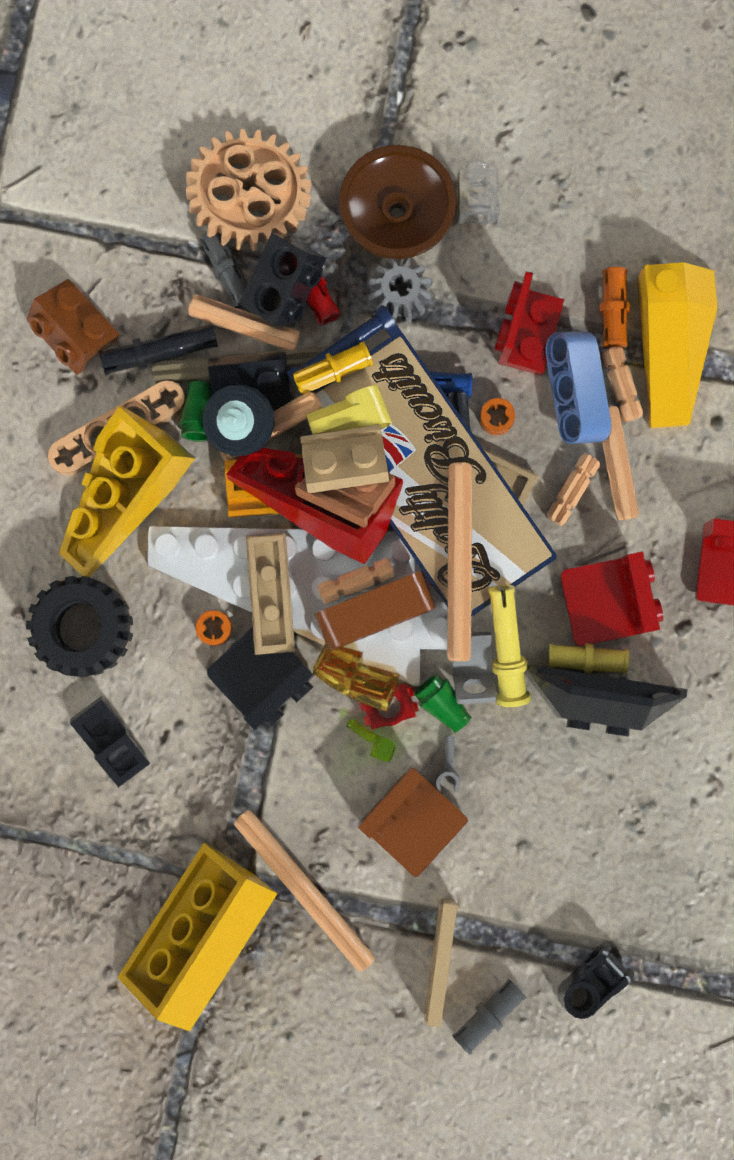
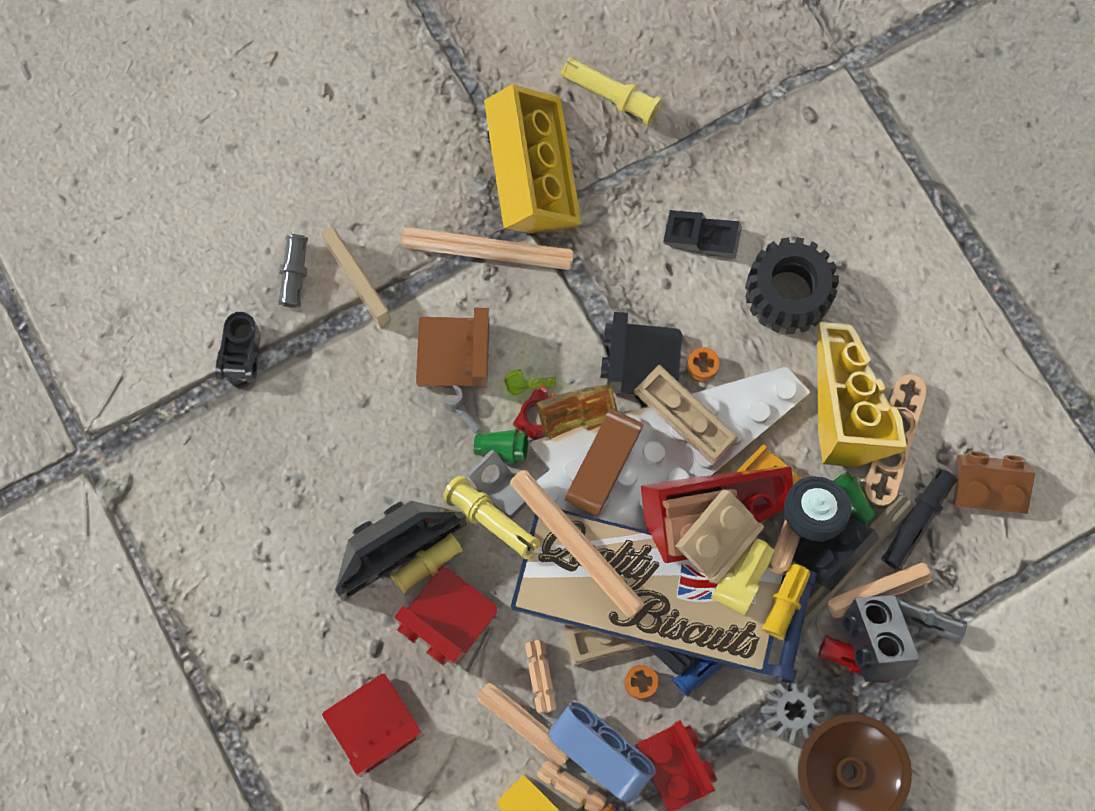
camera: 140 degrees right, 10 degrees down
(61, 925) = (624, 96): none -> light yellow pin
(262, 163) = (975, 721): light nougat gear -> none
(356, 581) = (635, 473): light nougat axle -> none

